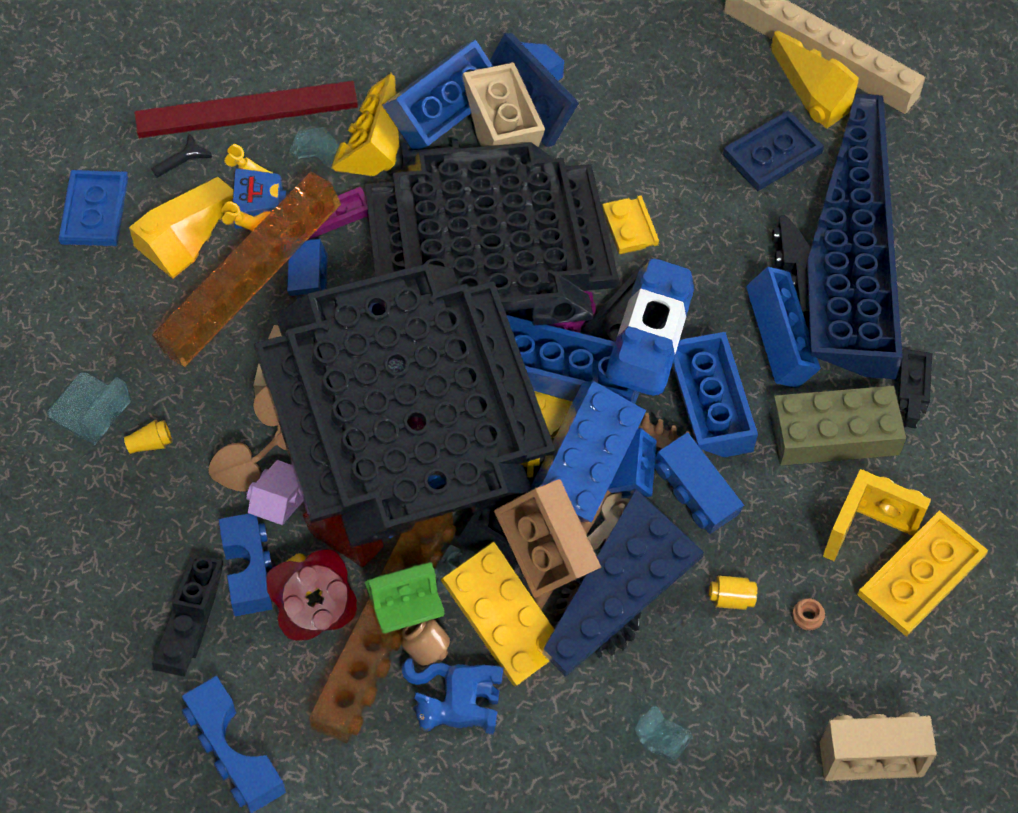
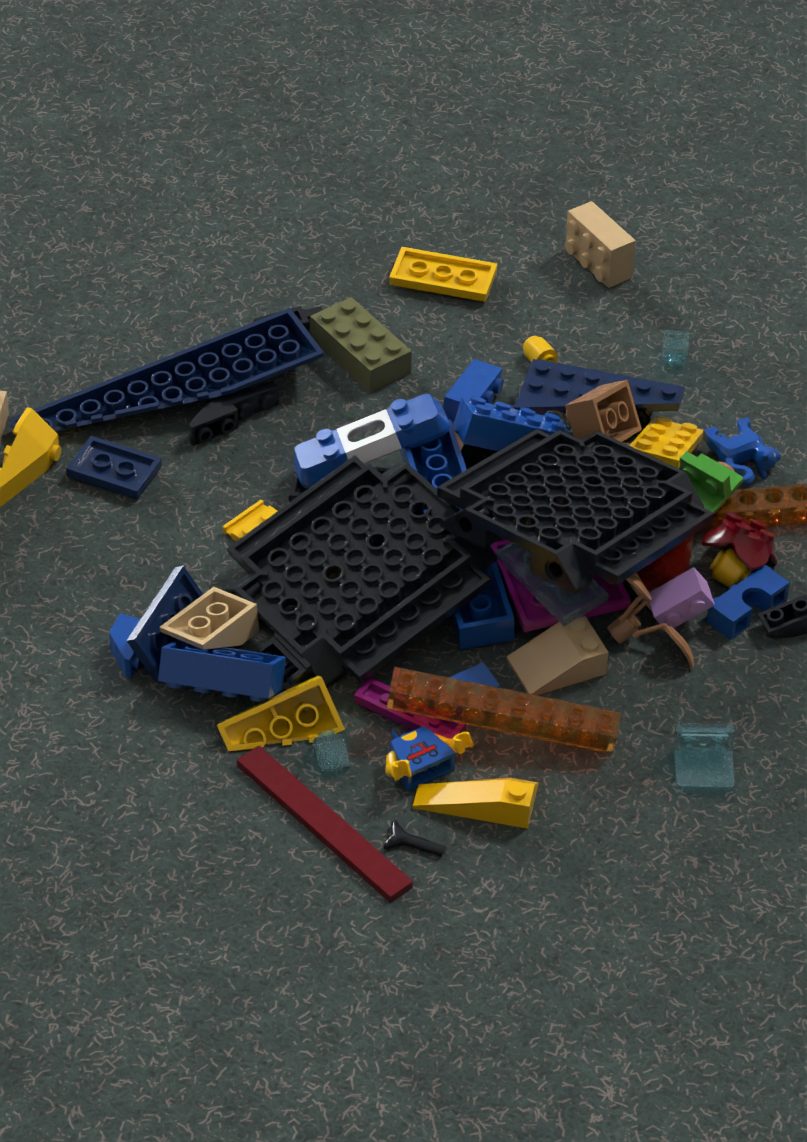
camera: 120 degrees left, 15 degrees down
(93, 208) = (513, 873): blue tile -> none
(150, 437) = (695, 710): yellow cone -> none
(714, 395) = (404, 385): blue slope -> none
(782, 327) = (297, 395): blue brick -> none
(812, 606) = (522, 316): nougat plate -> none
(879, 500) = (422, 303): yellow bracket -> none

